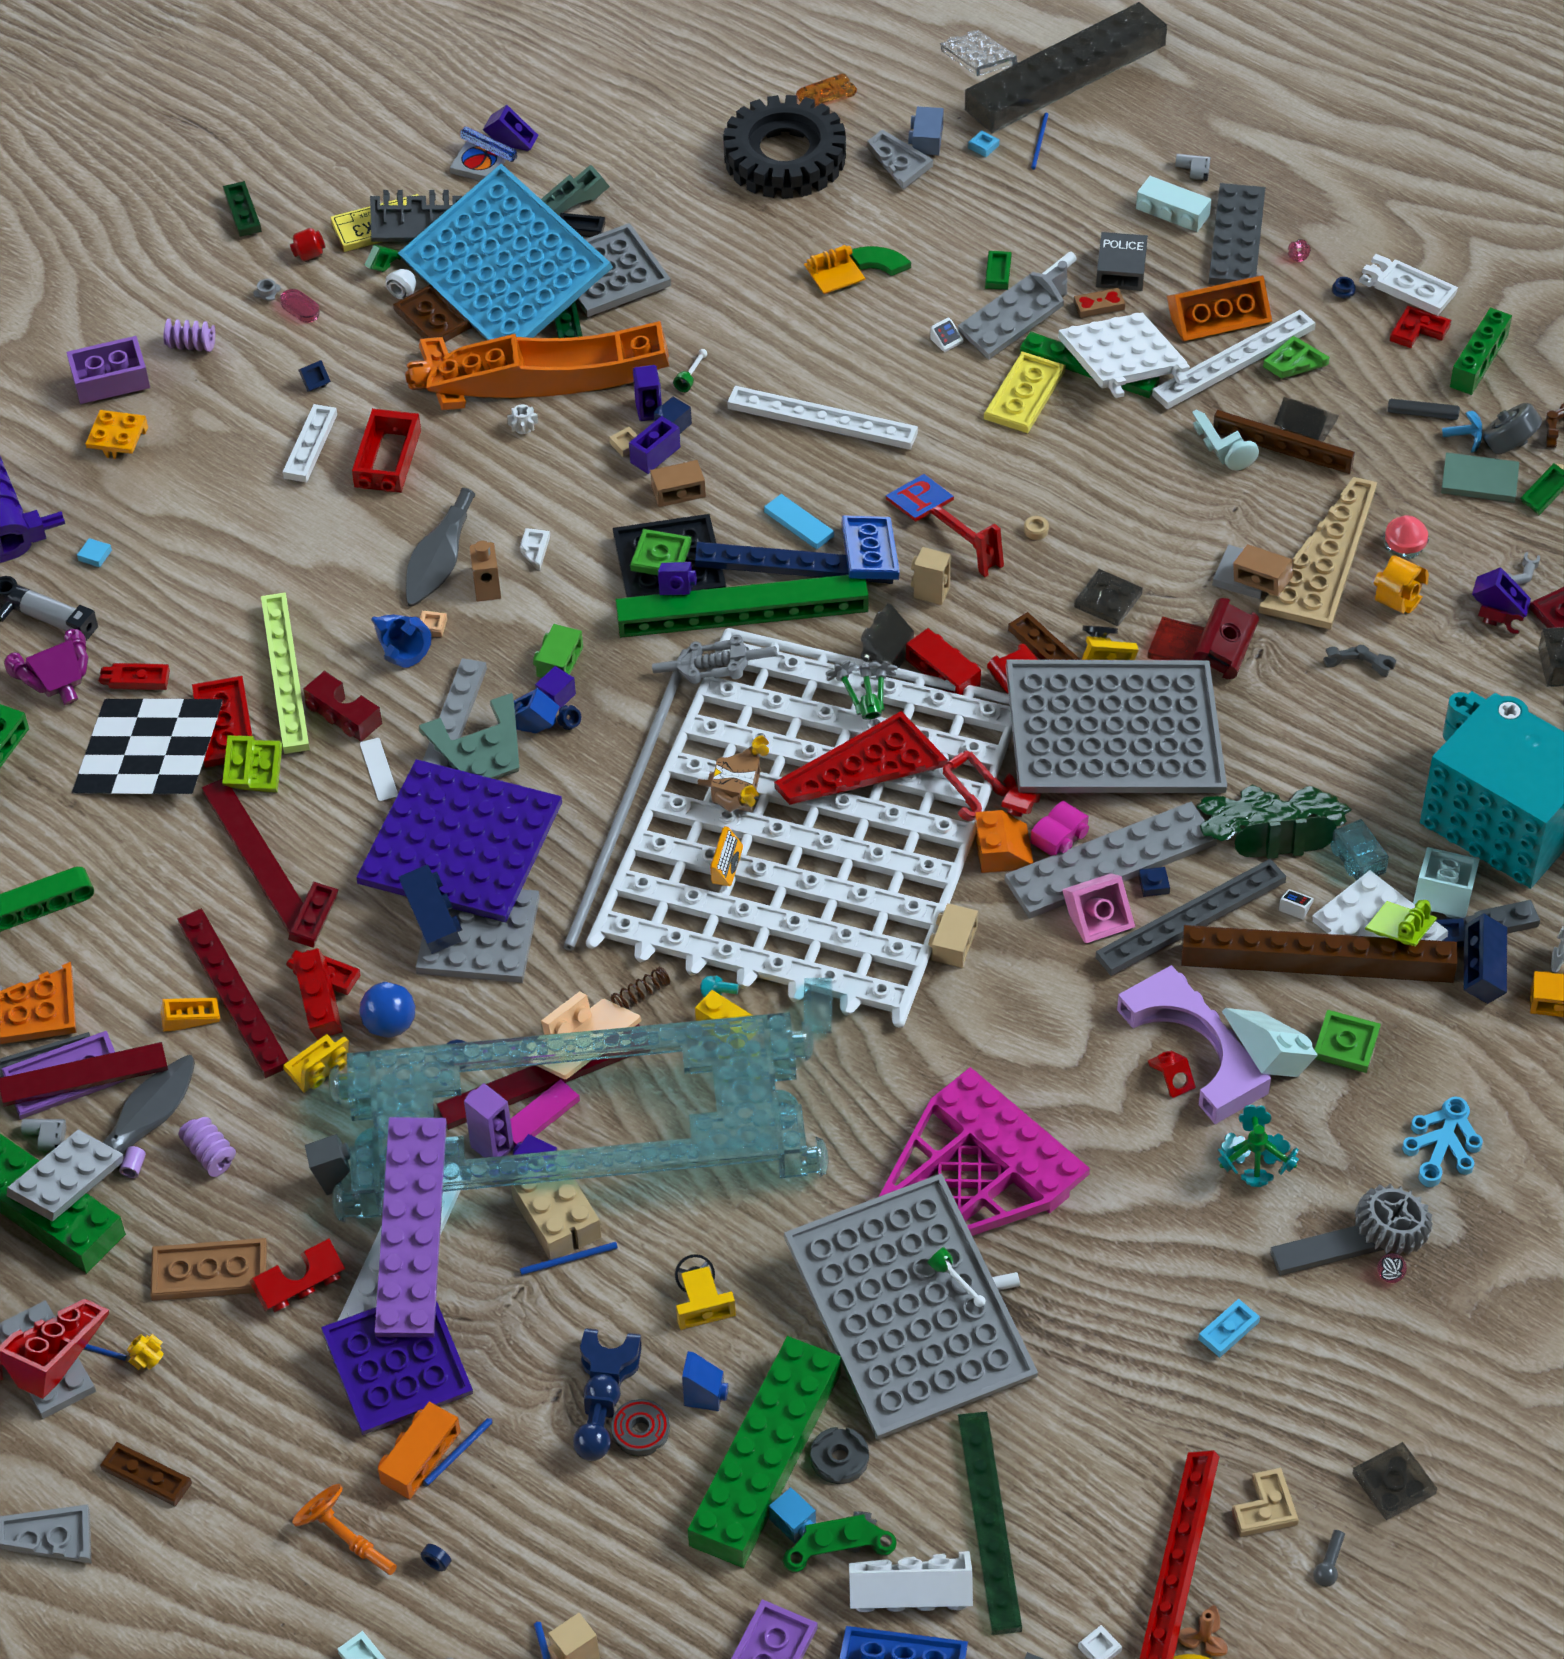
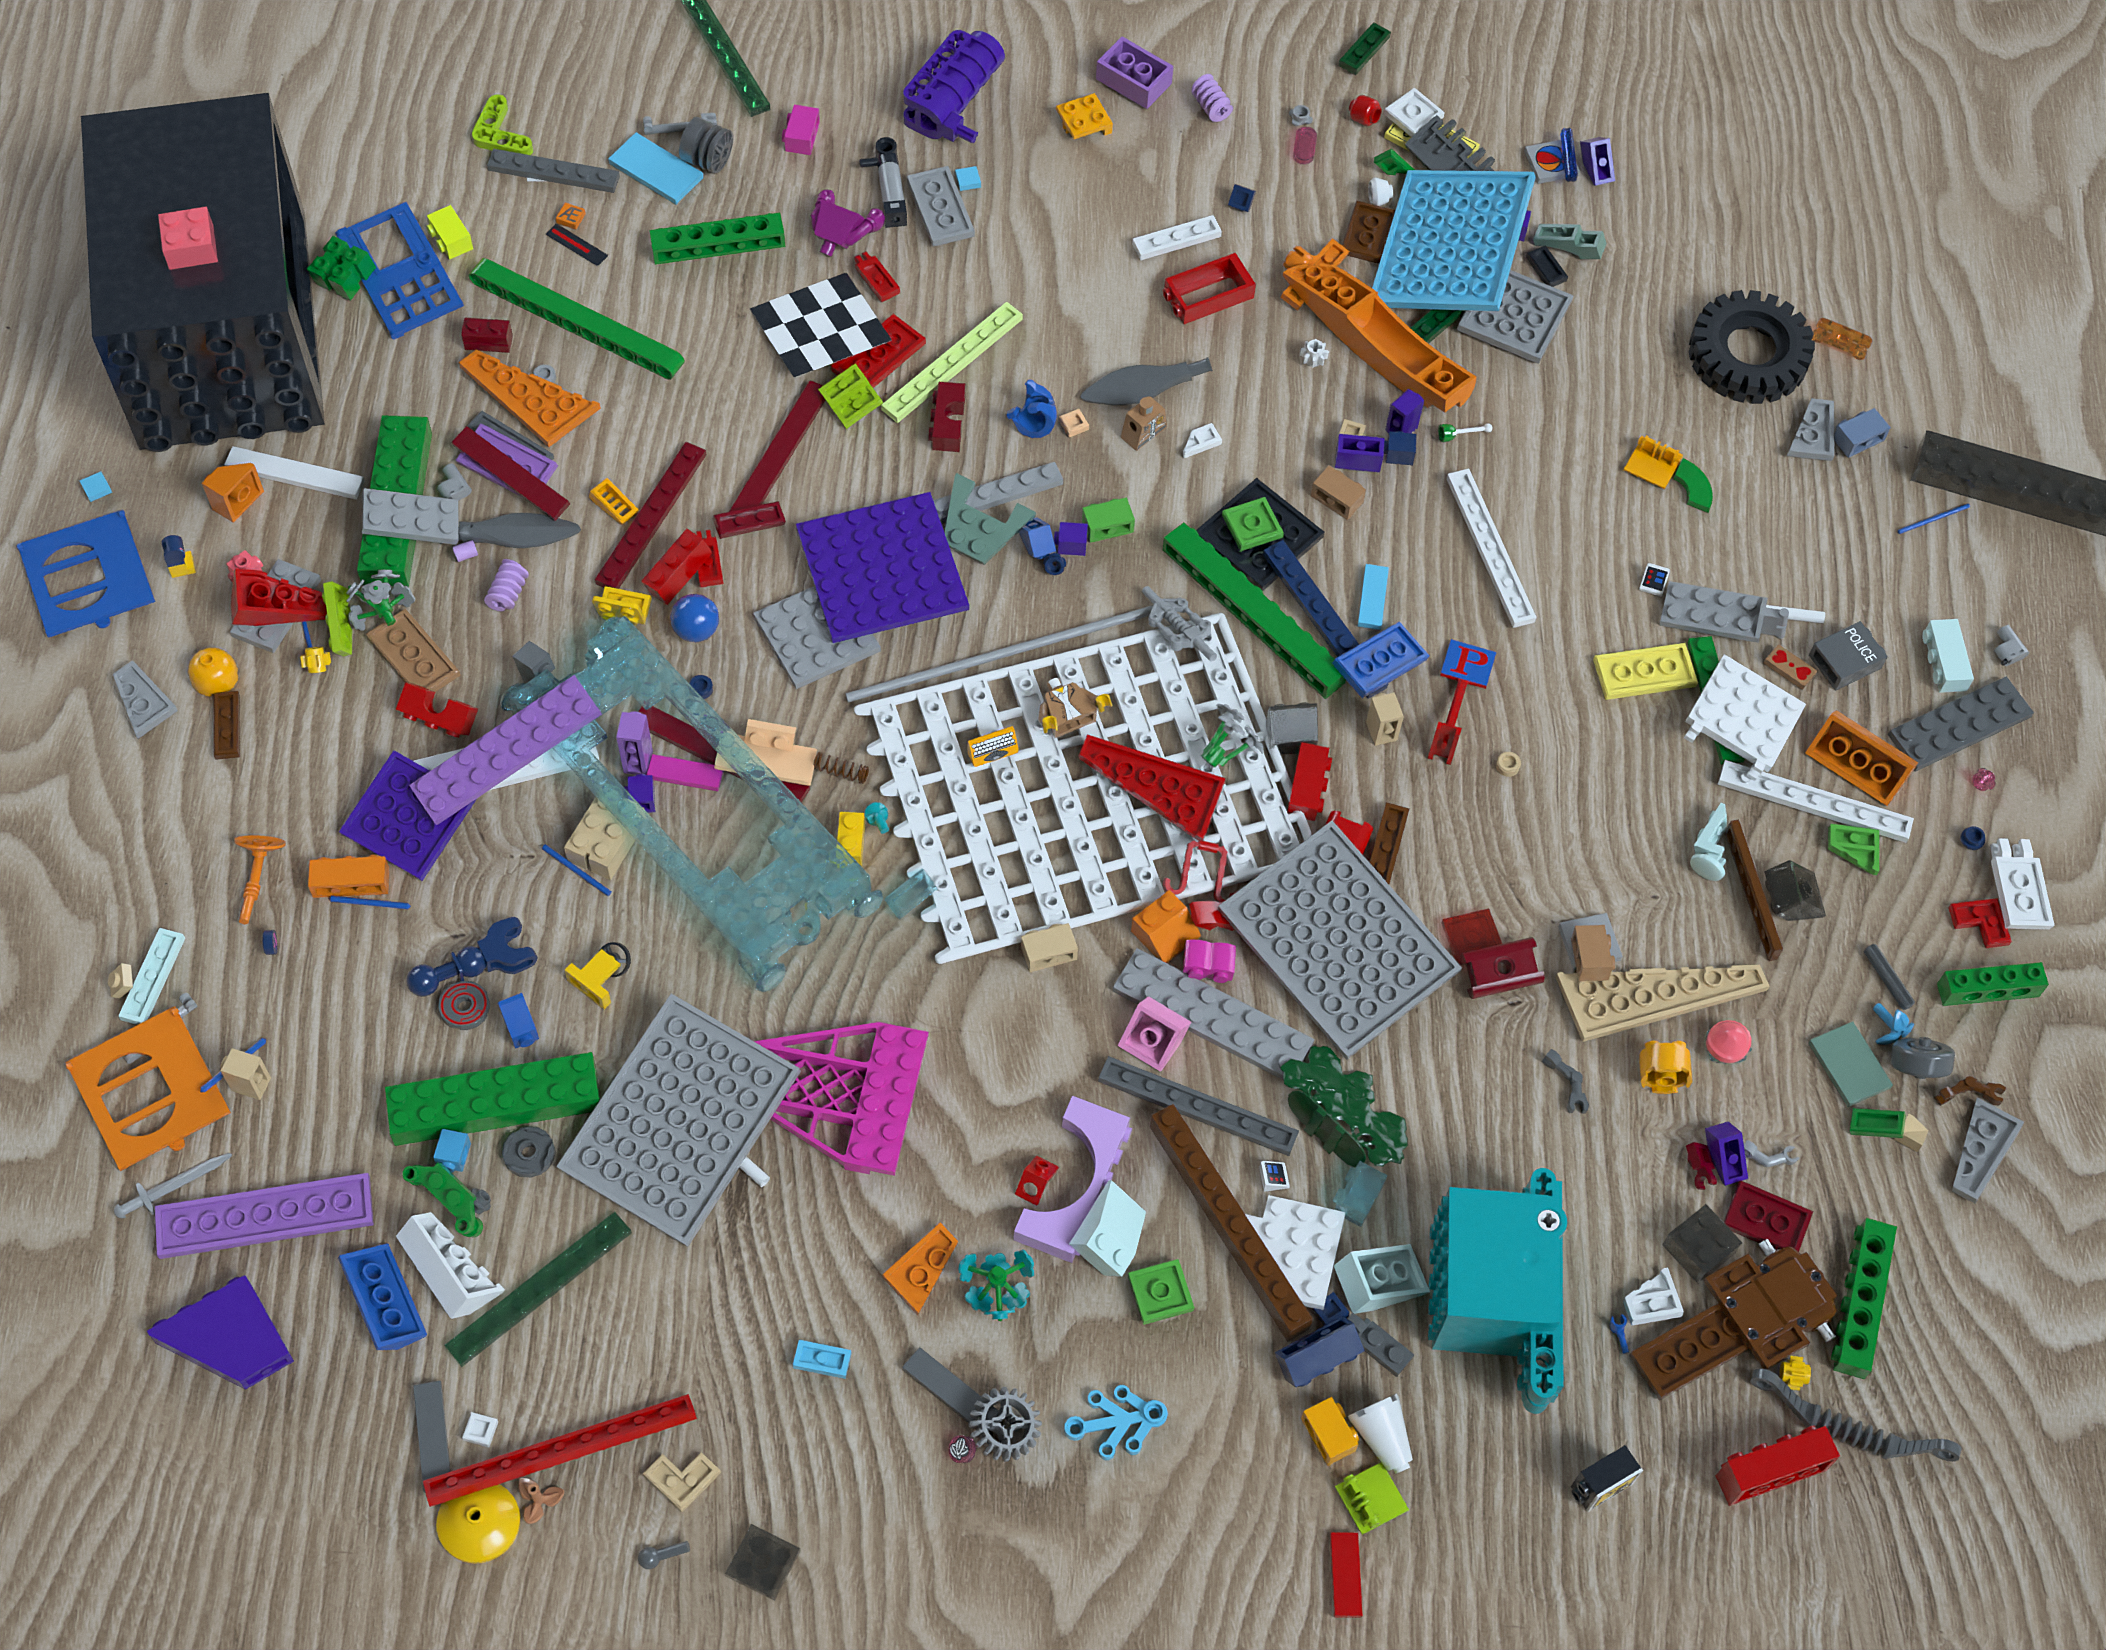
camera: 50 degrees right, 10 degrees up
(73, 1453) = (212, 671): none -> light orange cylinder
(106, 587) = (940, 206): none -> light grey plate
(118, 1306) = (337, 618): none -> lime wing
(138, 1242) = (377, 596): none -> light grey plant
(346, 213) = (1412, 112): none -> white plate
(379, 769) = (916, 475): white sticker -> none
(431, 908) = (796, 586): dark blue brick -> none
(676, 578) = (1231, 547): dark purple brick -> none
(942, 1262) = (721, 1117): hinge -> none
(978, 53) = (1980, 415): clear plate -> none
(983, 143) = (1891, 481): medium azure tile -> none
(998, 270) = (1760, 574): green tile -> none
(1102, 648) = (1415, 887): yellow piece -> none
(1108, 597) = (1479, 858): clear smoke plate -> none
(1154, 881) = (1215, 1059): dark blue plate -> none
(1192, 1204) = (921, 1266): none -> orange wing
(1402, 922) = (1296, 1265): lime hinge -> none

